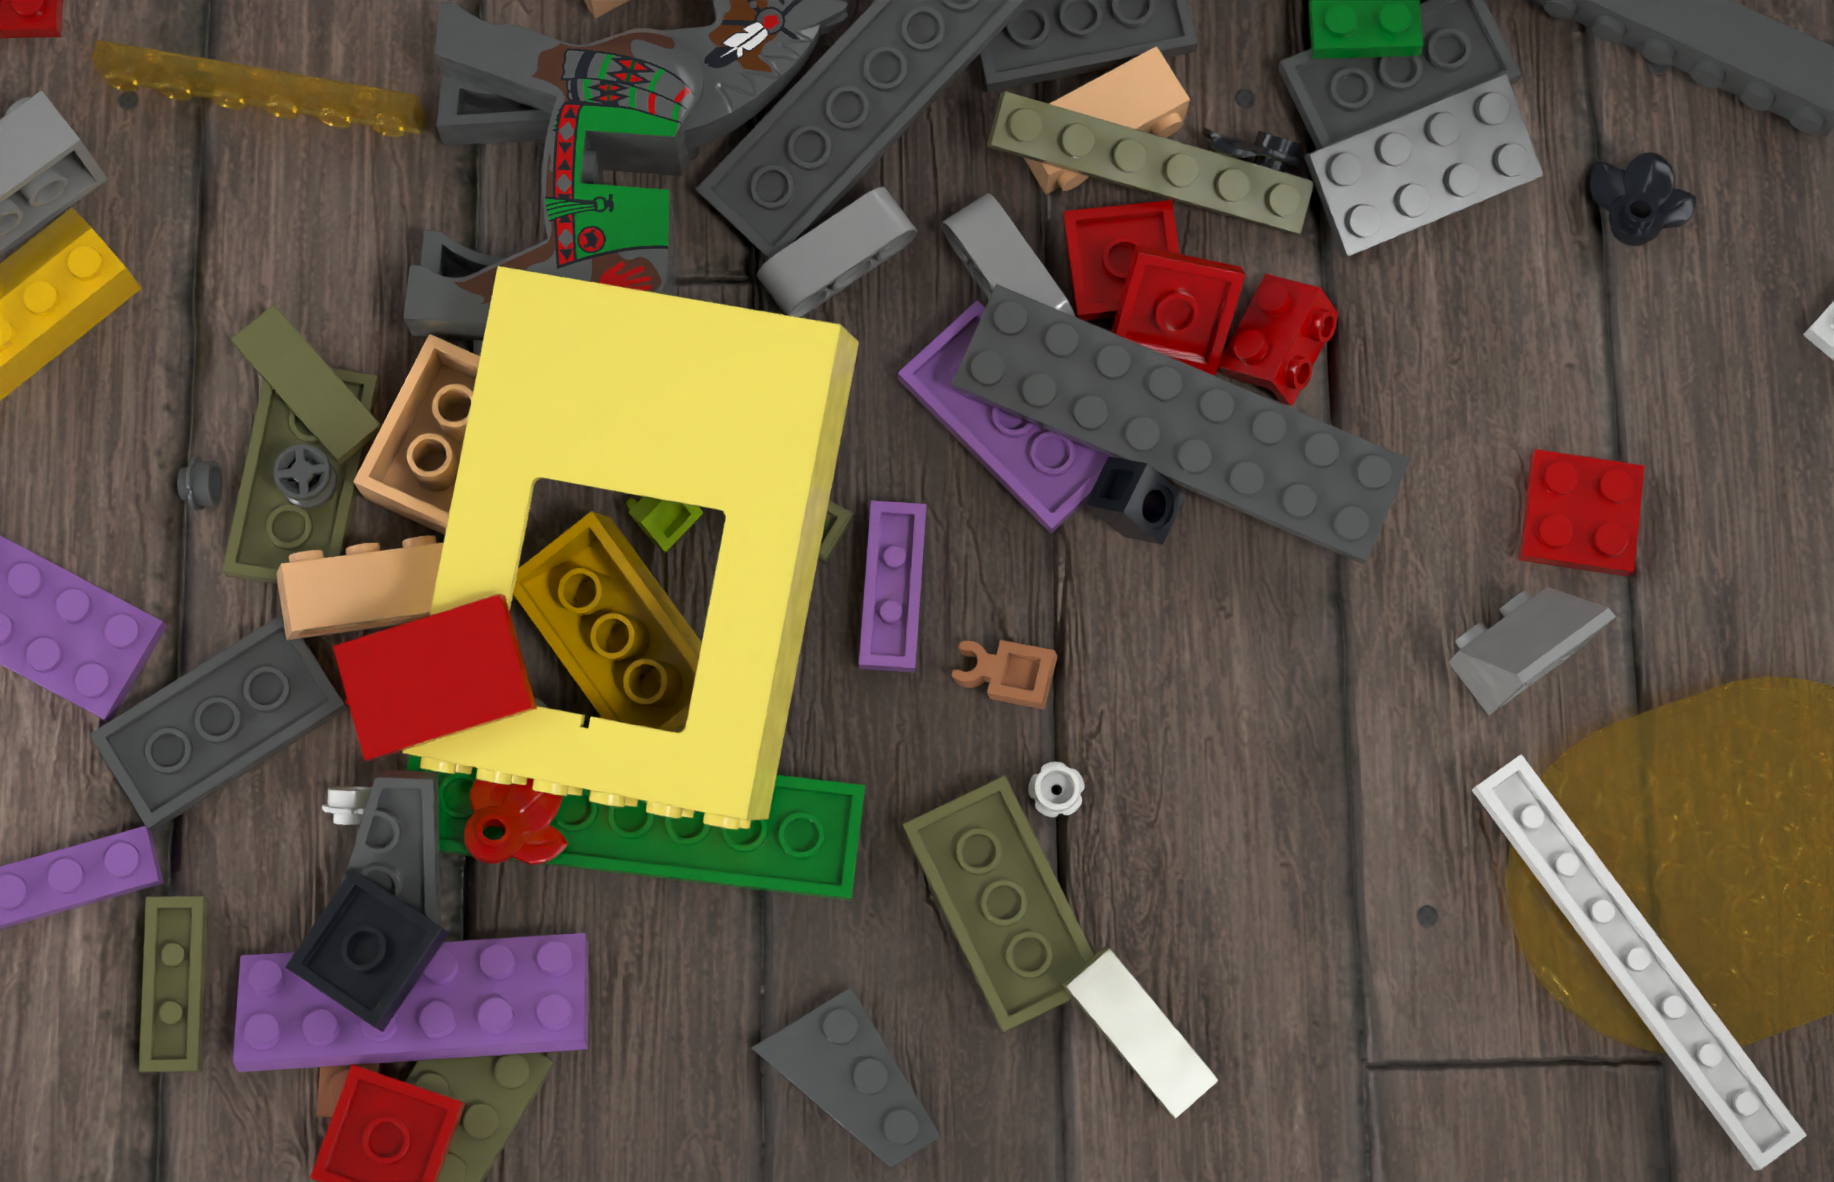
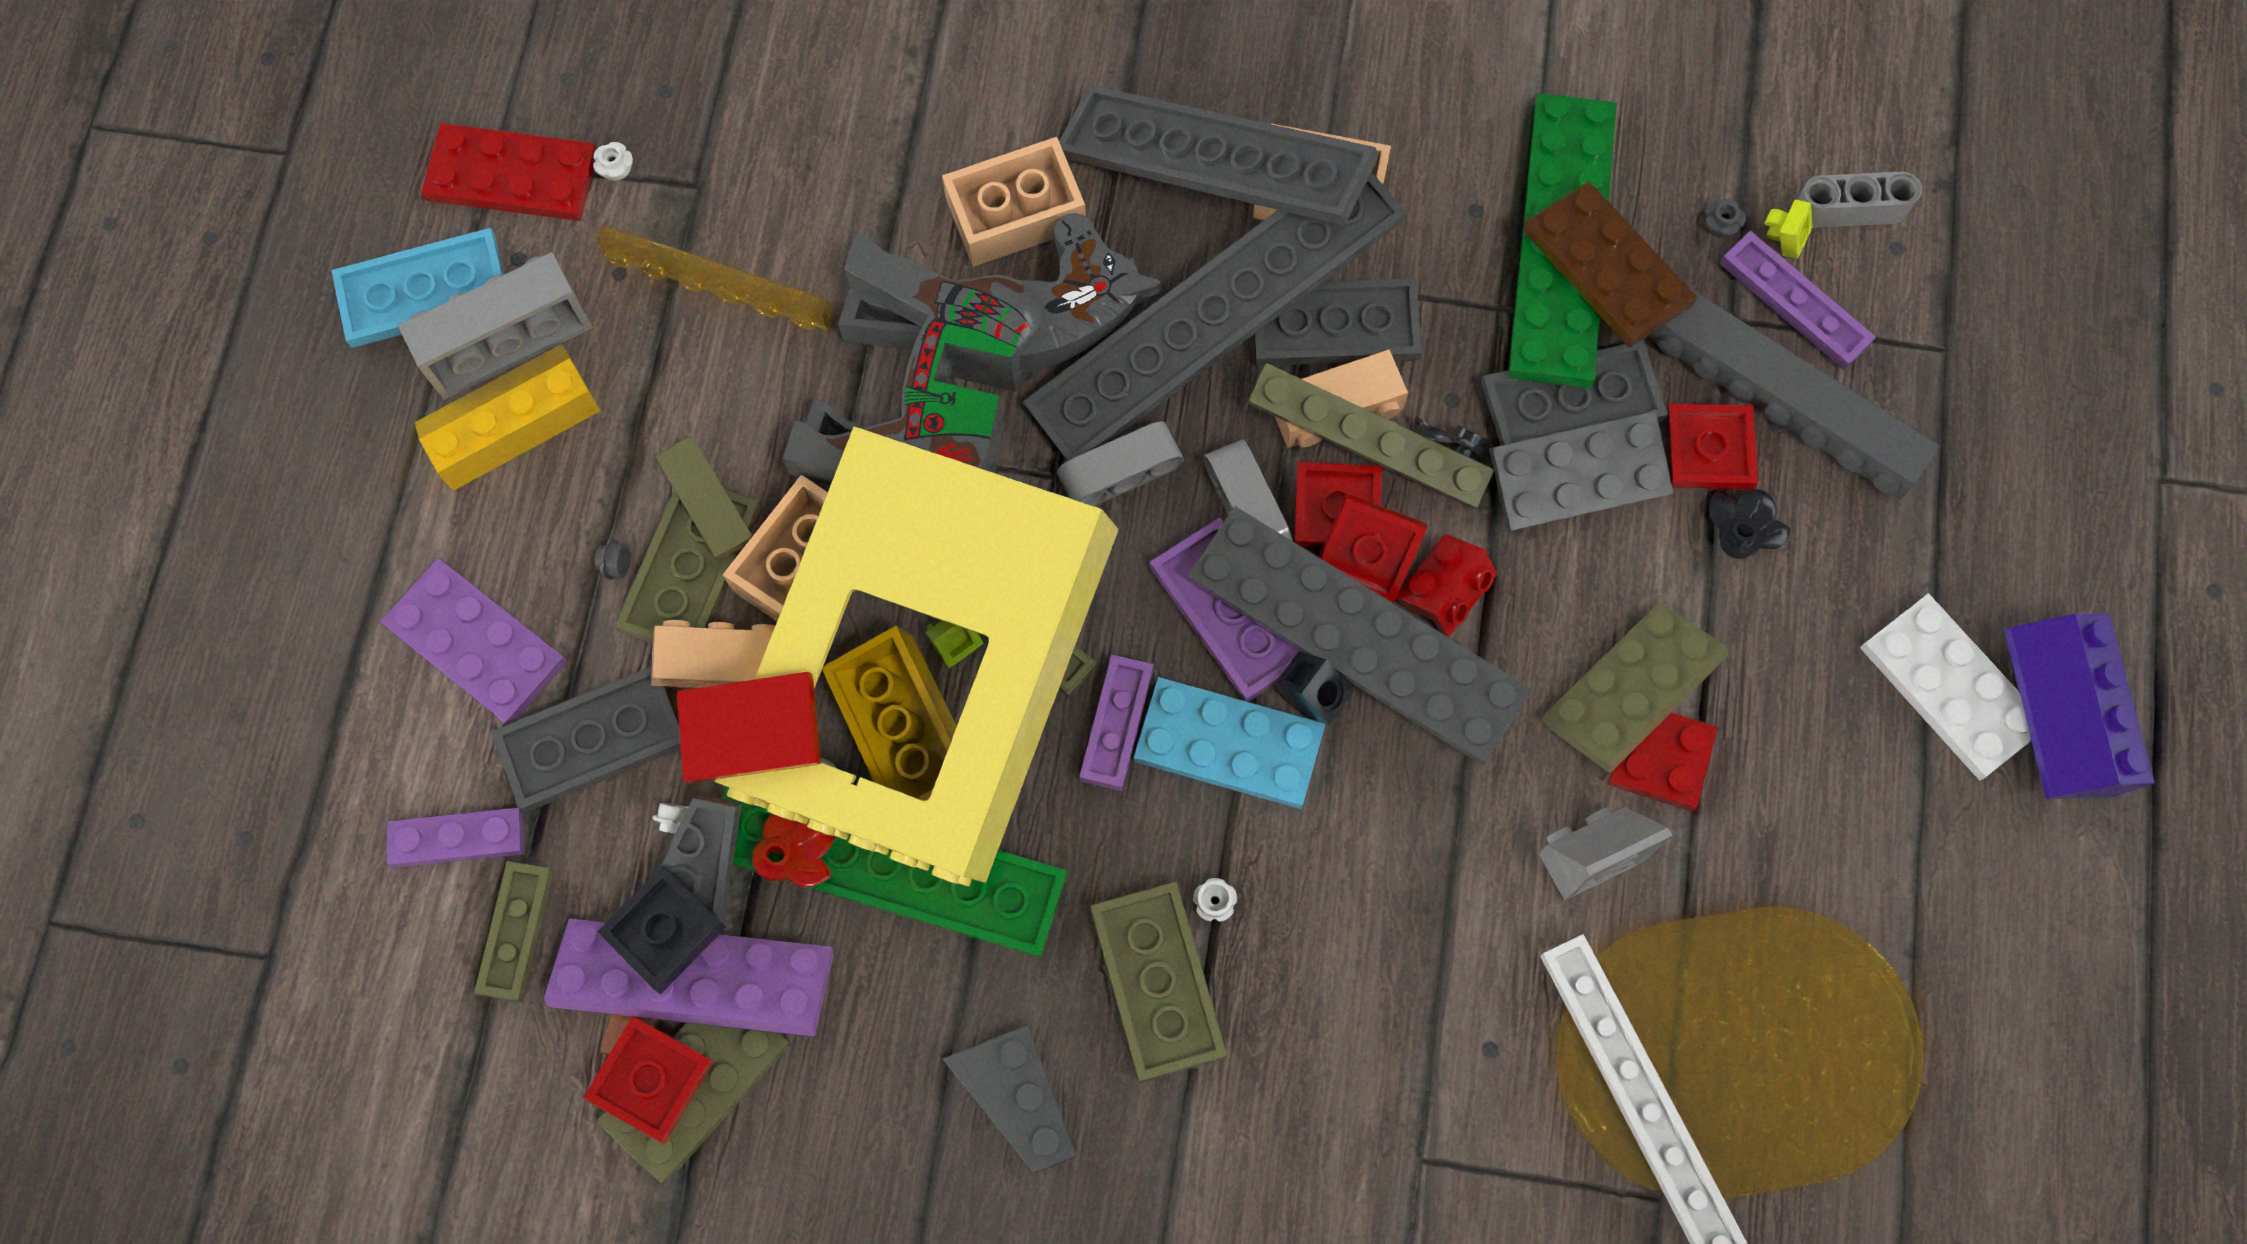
camera: 15 degrees right, 5 degrees down
(301, 464) = (683, 558): dark grey wheel -> none
(1015, 674) = (1197, 806): nougat plate -> none
(1039, 587) = (1229, 743): none -> medium azure plate
(1140, 1032) = (1246, 1100): tile -> none
(1534, 432) = (1634, 687): none -> olive plate
(1582, 106) = (1711, 446): none -> red plate

